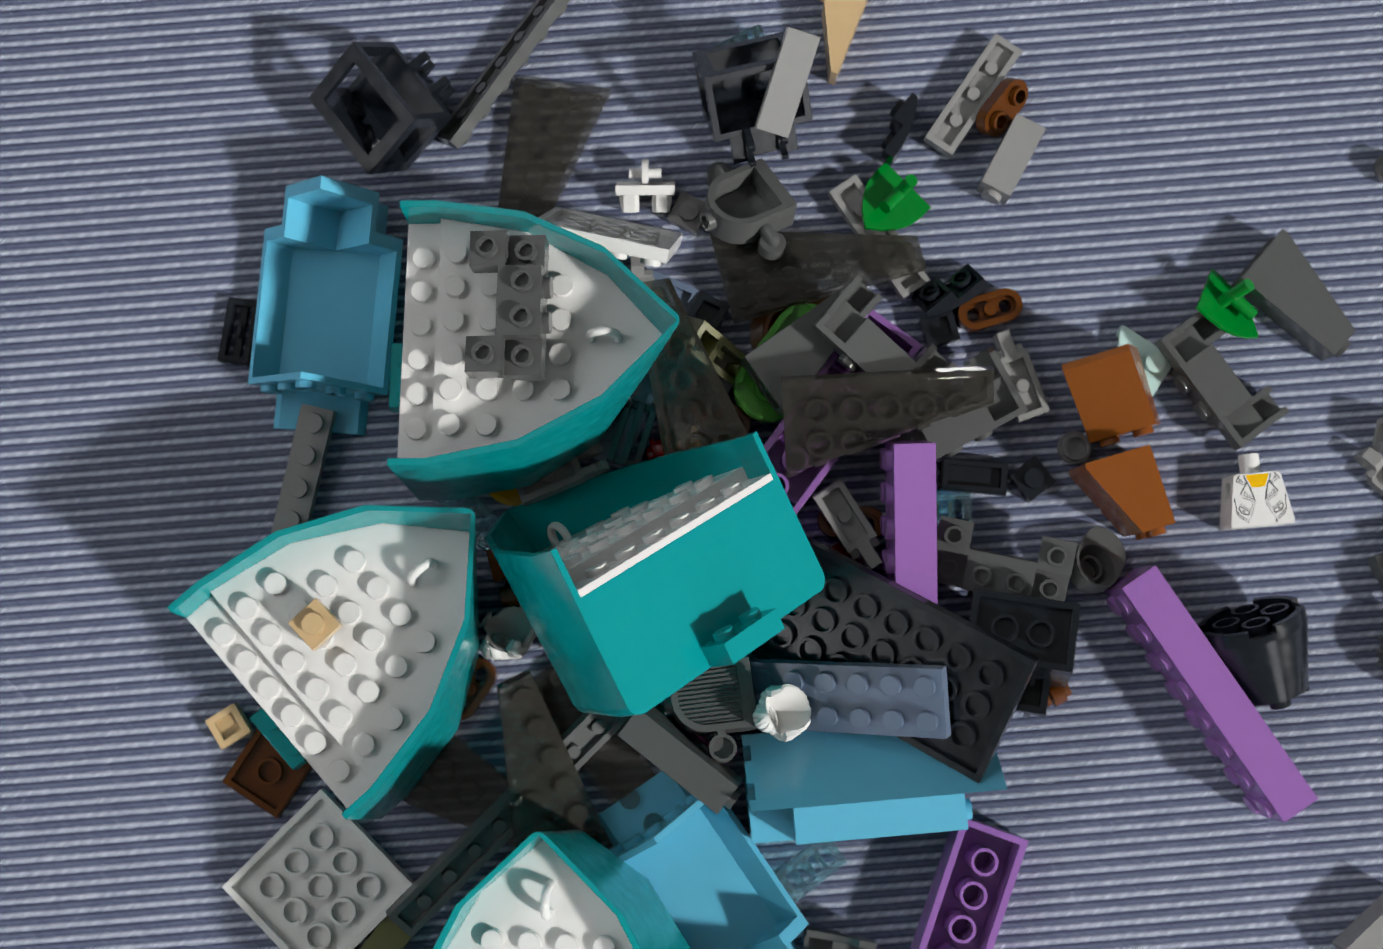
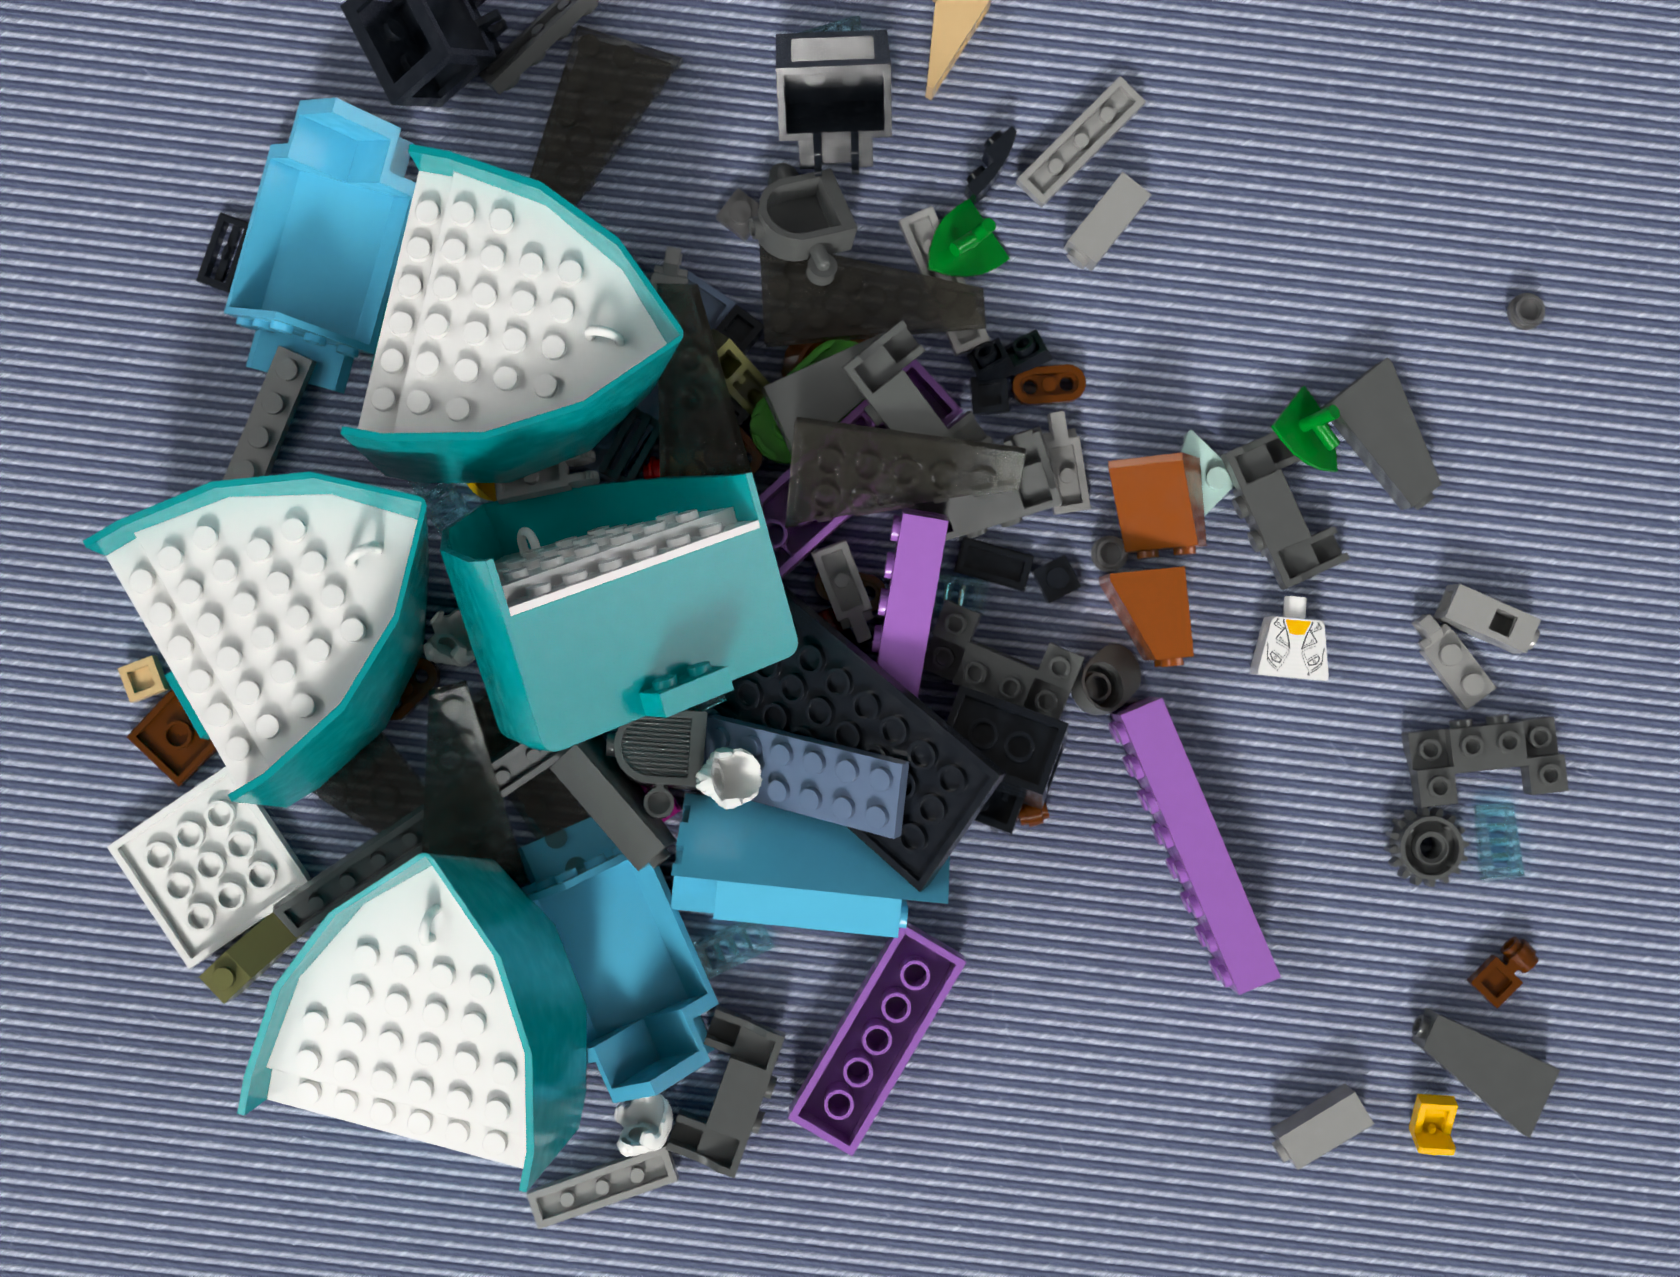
camera: 10 degrees right, 5 degrees up
(315, 624) = (238, 589): tan plate -> none
(521, 306) = (517, 285): dark grey bracket -> none
(619, 236) = (648, 224): white plate -> none
(630, 190) = (713, 183): white hips -> none
(787, 82) = (867, 89): light grey tile -> none
(1001, 107) = (1110, 158): reddish brown plate -> none
(1263, 648) = (1260, 808): black cone -> none

